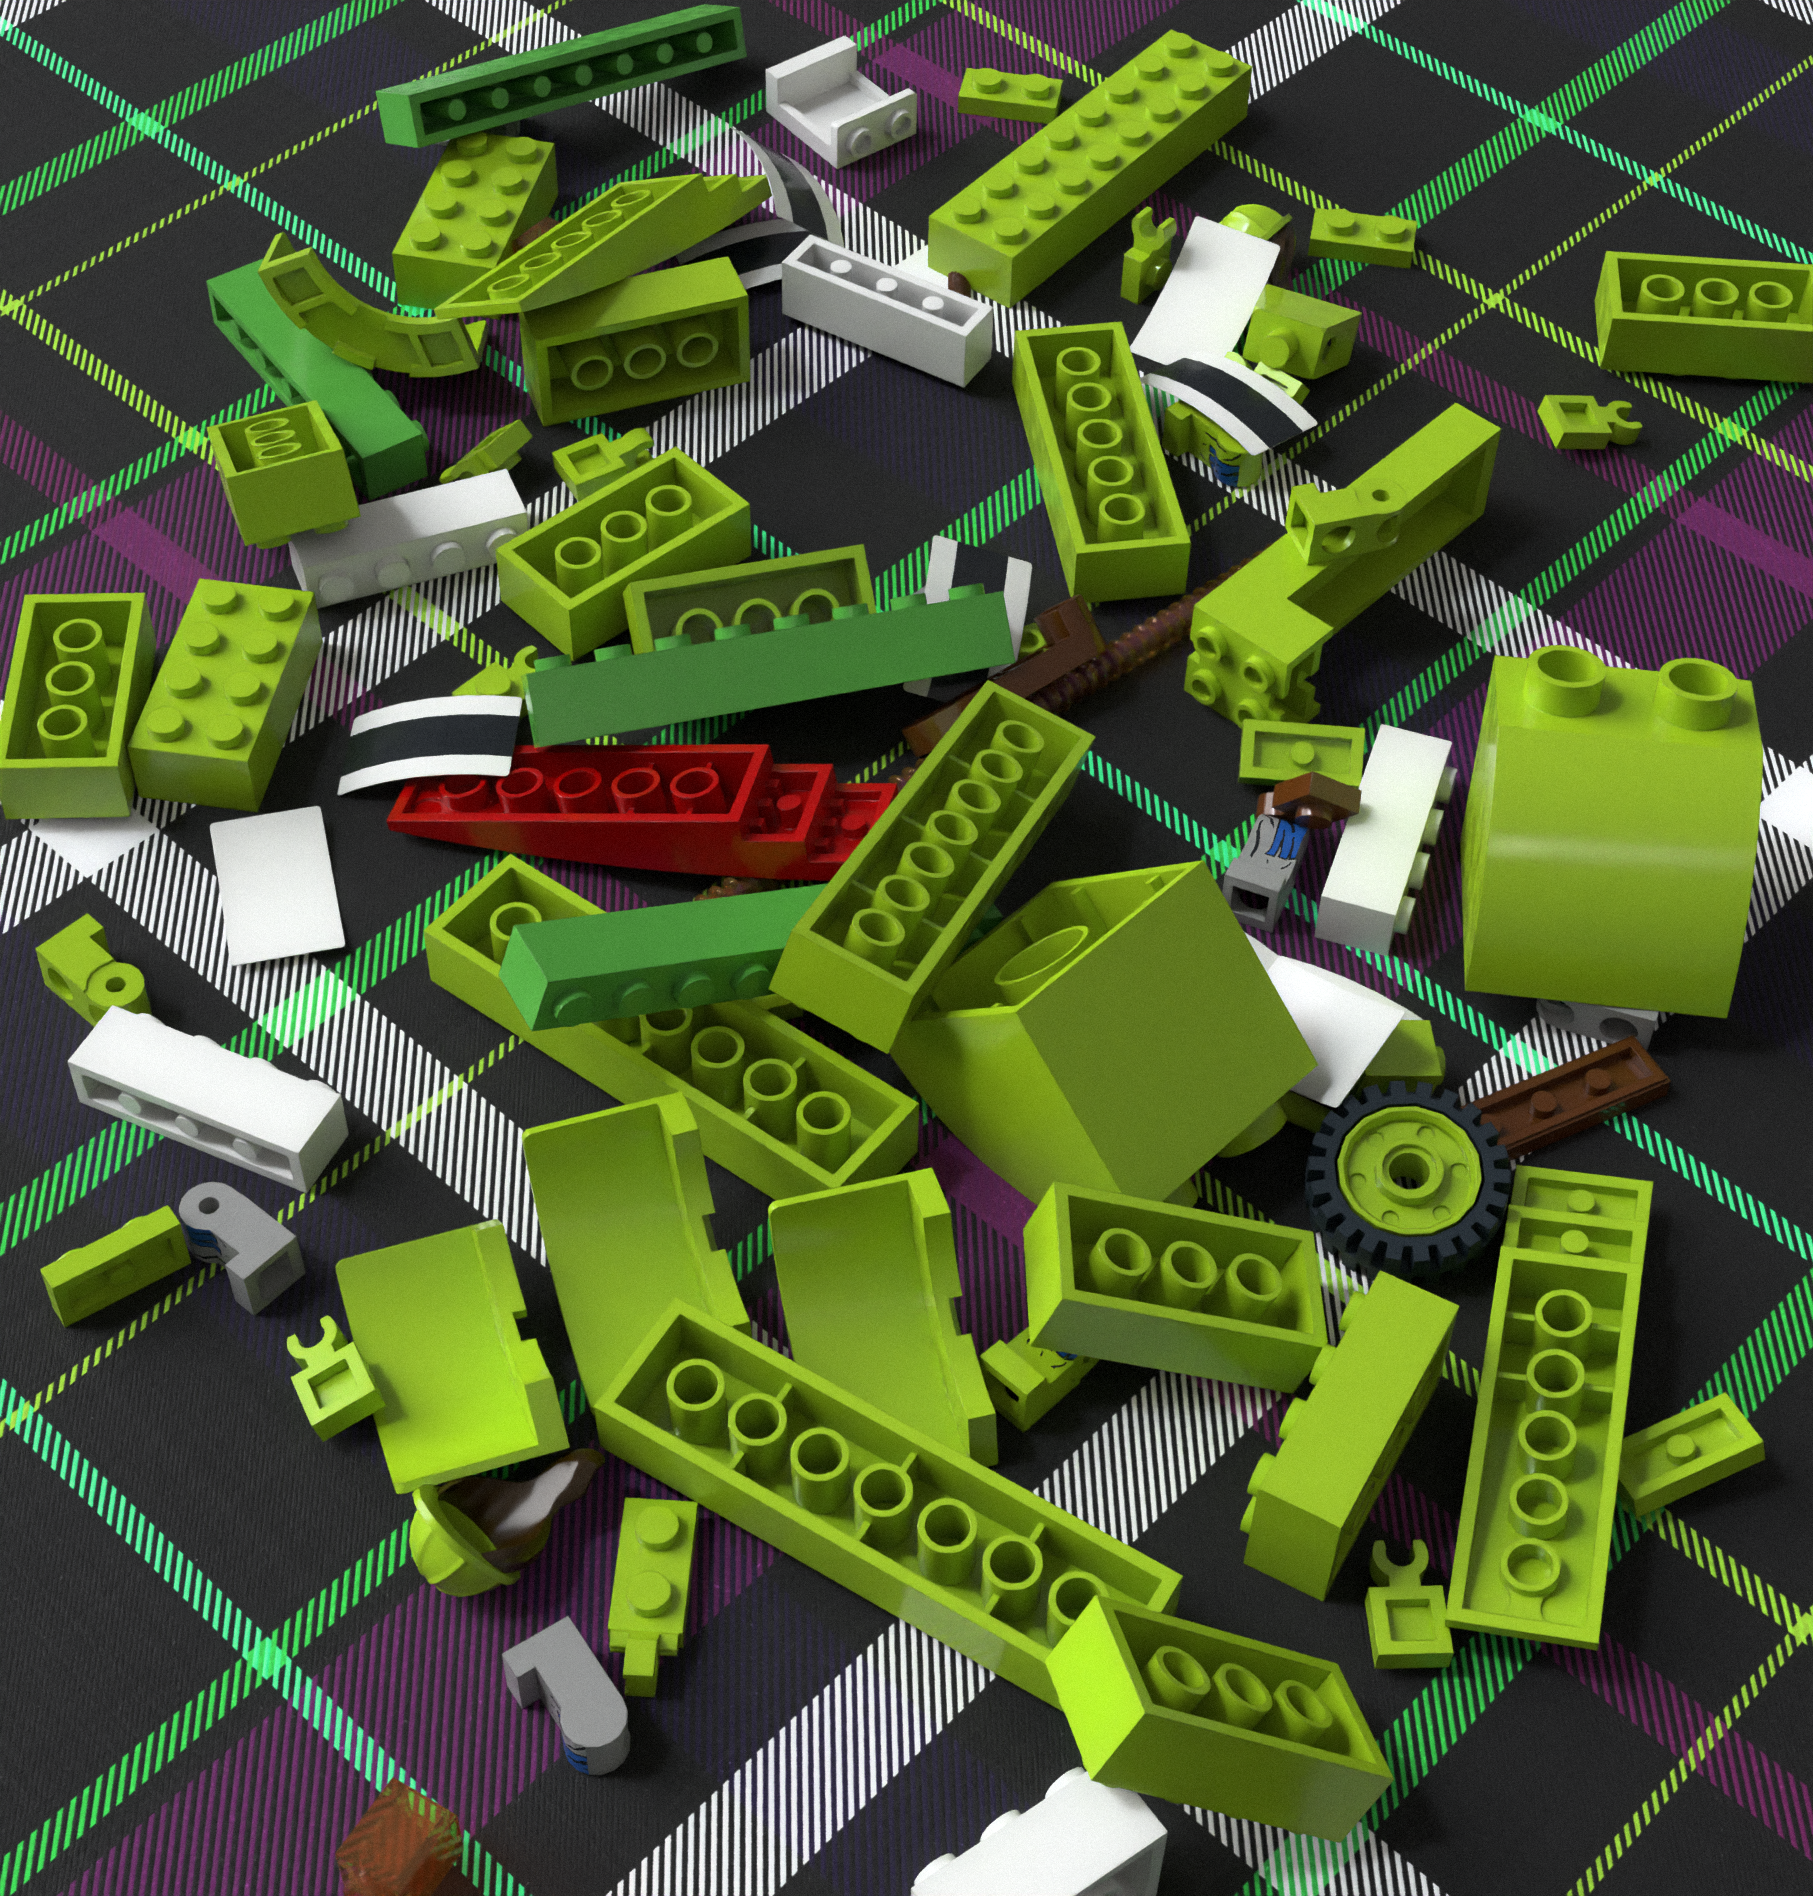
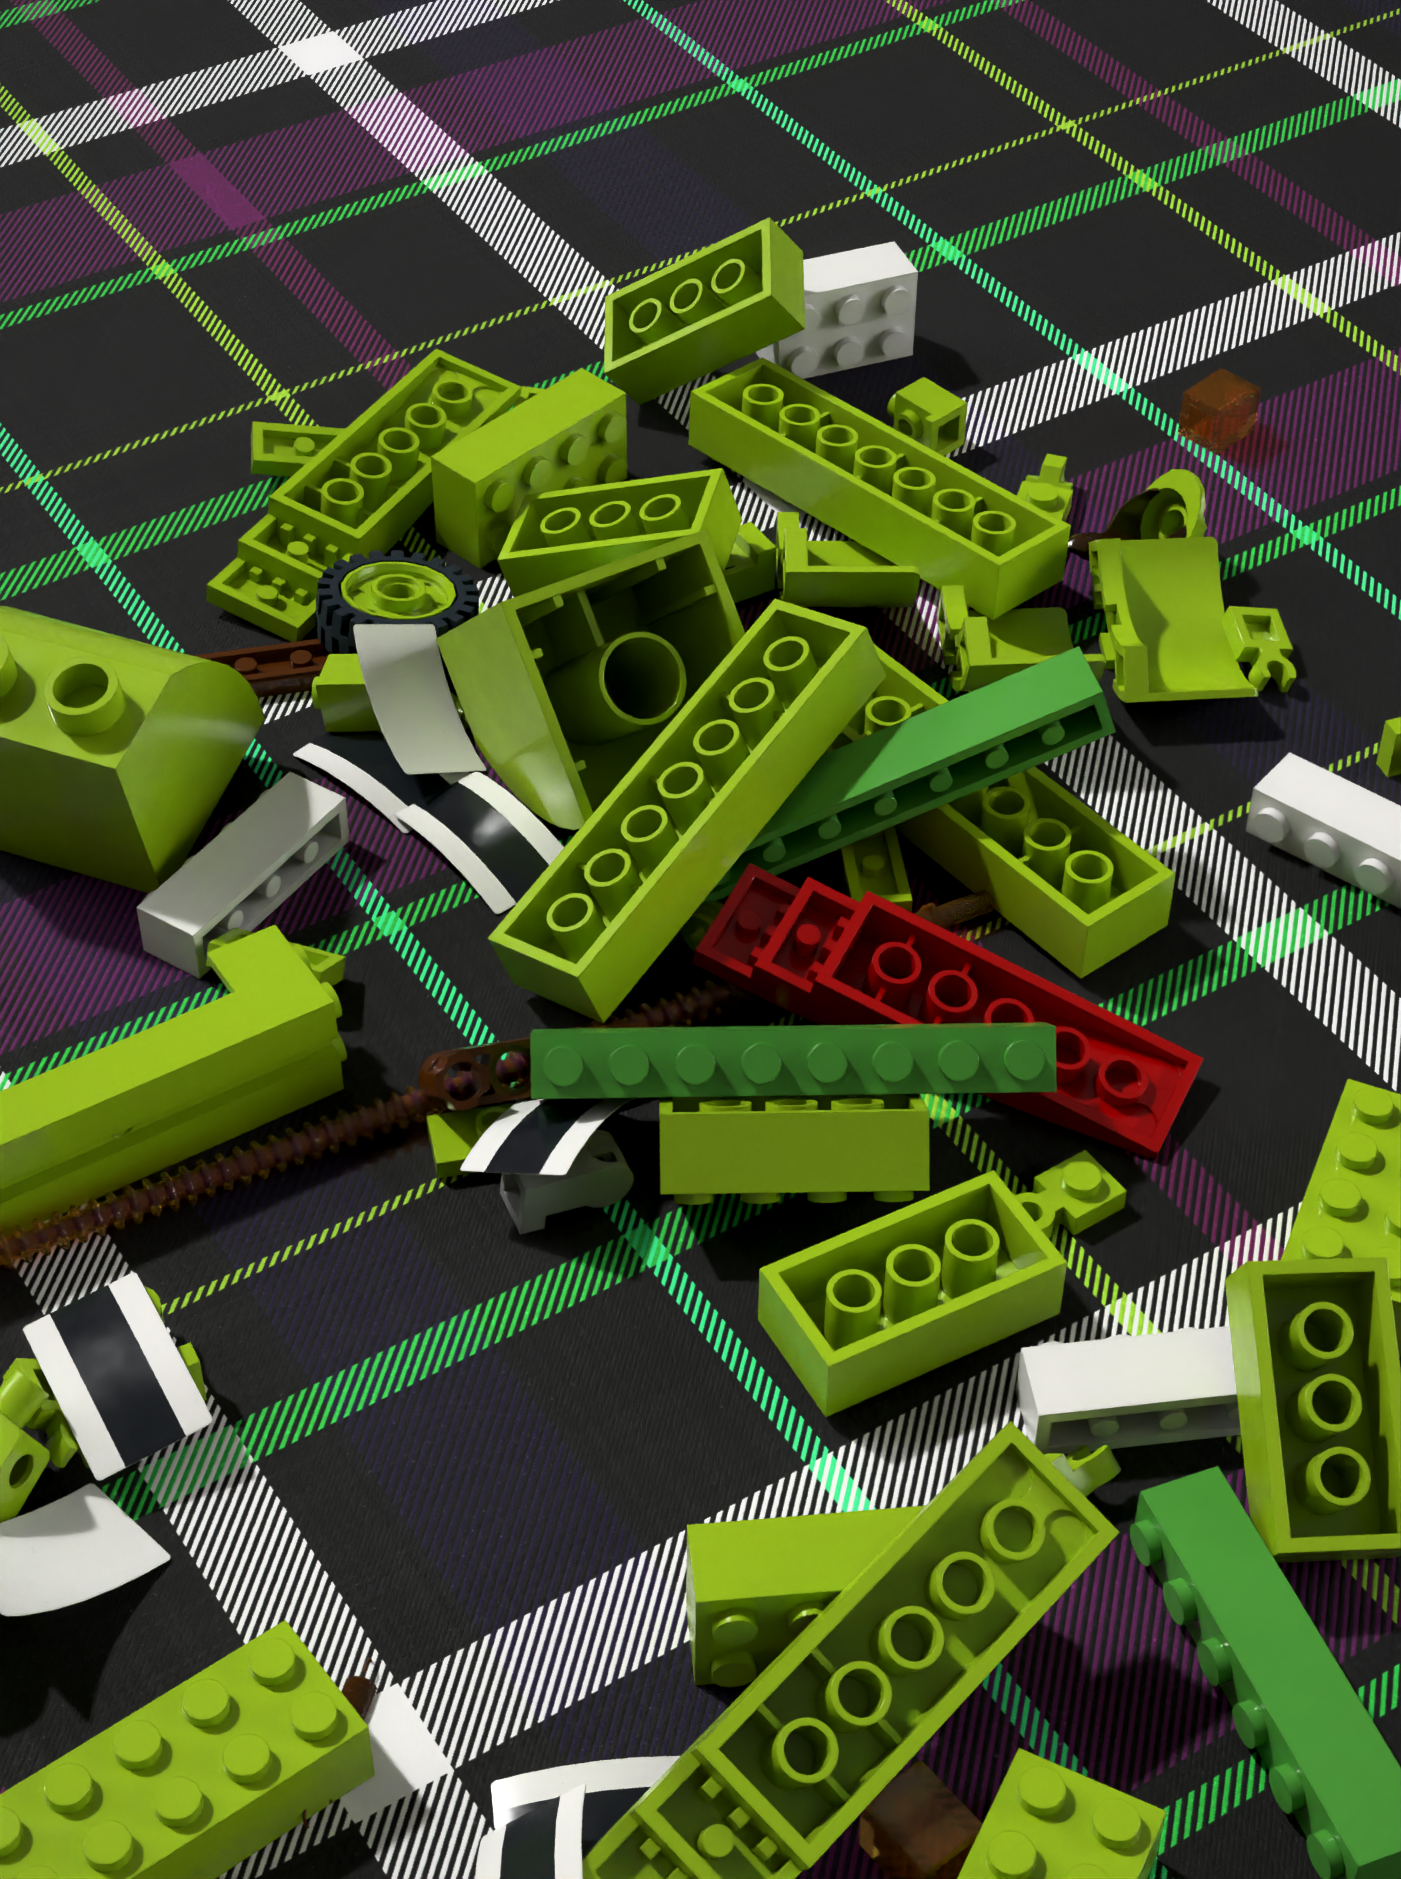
camera: 165 degrees left, 5 degrees down
(243, 1239) = (1335, 738): light grey leg -> none
(276, 885) = (1309, 1031): white sticker -> none
(363, 332) = (1200, 1700): lime panel -> none
(432, 740) = (1155, 1129): sticker -> none
(576, 1692) = (1101, 463): light grey leg -> none
(597, 462) = (913, 1459): lime plate -> none
(843, 1727) = (929, 415): none -> lime brick
(887, 310) = (485, 1607): white brick -> none
(1099, 463) = (312, 1324): lime brick -> none
(1147, 262) = (88, 1641): lime plate -> none
(1266, 868) = (372, 867): light grey leg -> none
(1310, 801) = (308, 873): reddish brown plate -> none
(1345, 519) = (128, 1025): lime leg -> none

